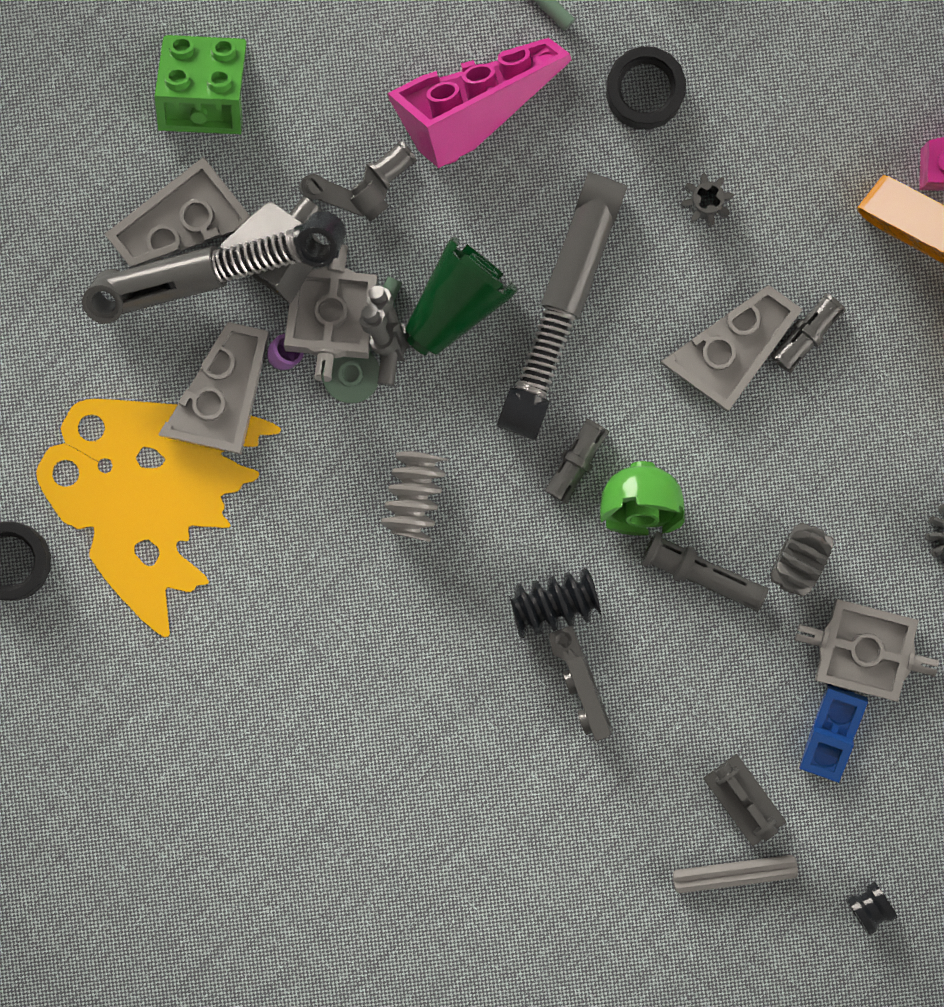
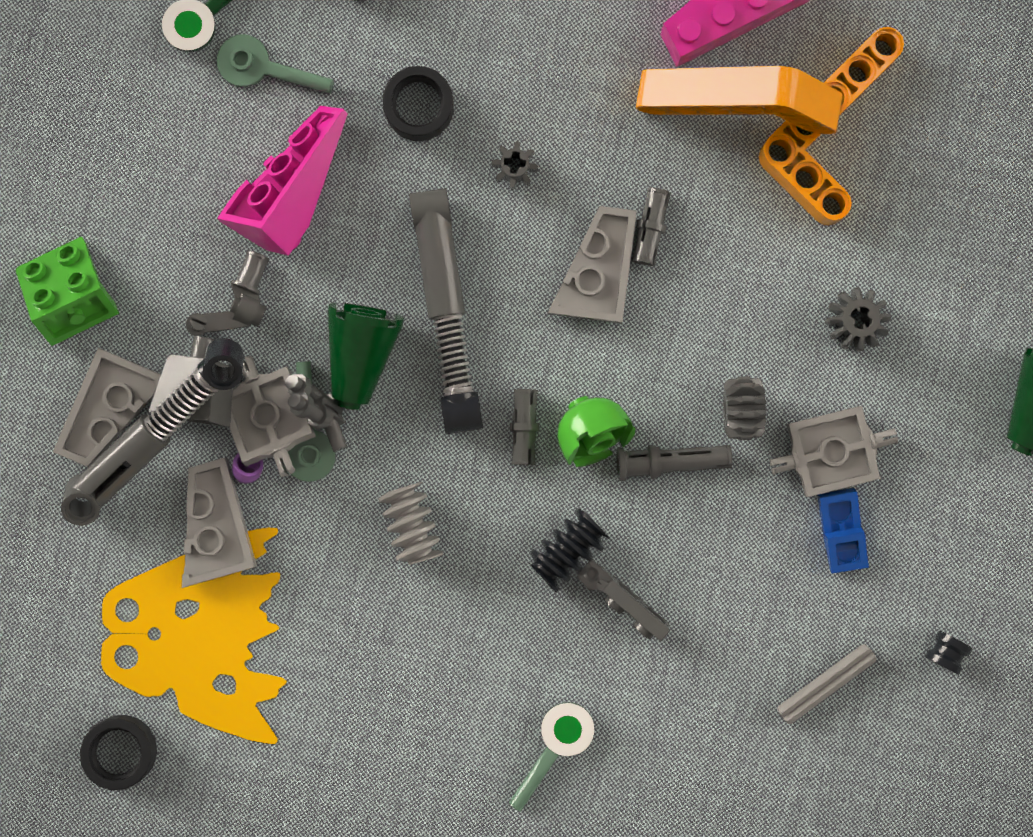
camera: 30 degrees left, 0 degrees up
(454, 779) = (566, 732): none -> piece
(745, 800) = (802, 622): dark grey hinge -> none

